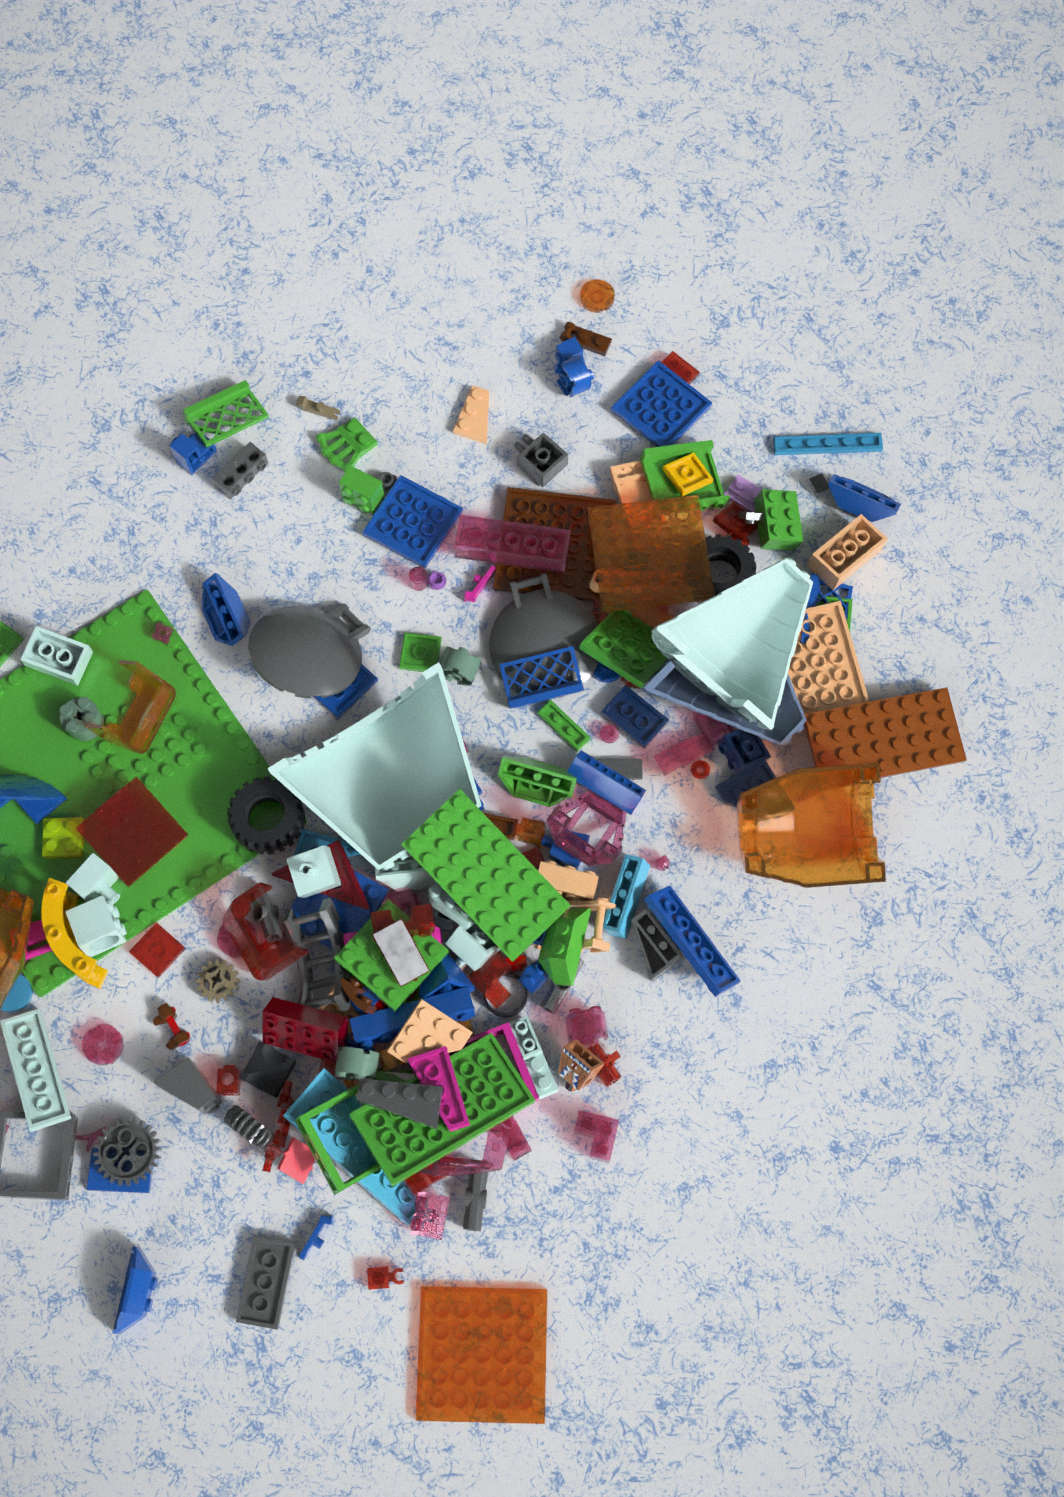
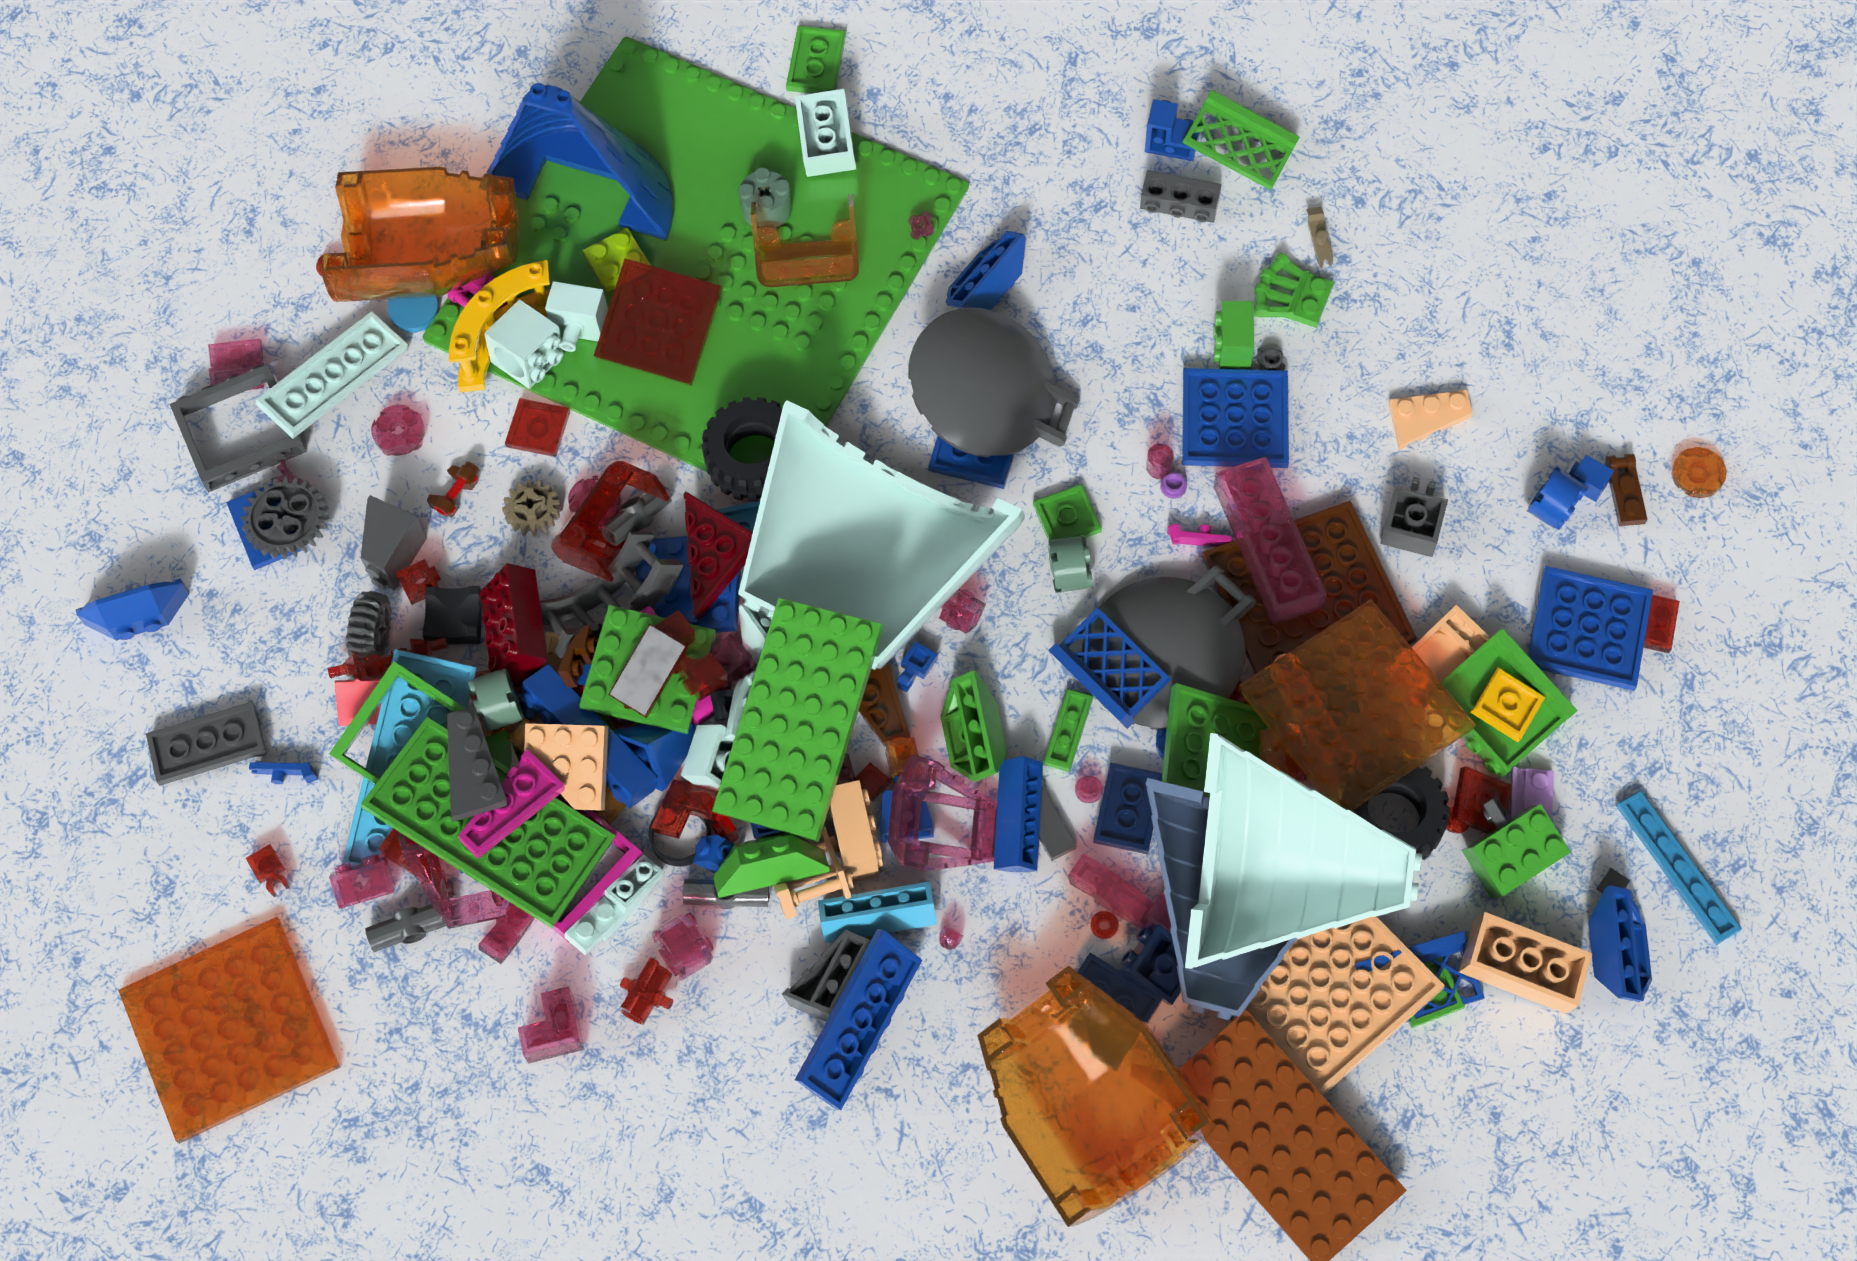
camera: 65 degrees right, 5 degrees down
(313, 871) = (704, 530): light aqua brick -> none
(578, 1066) = (626, 958): nougat torso -> none

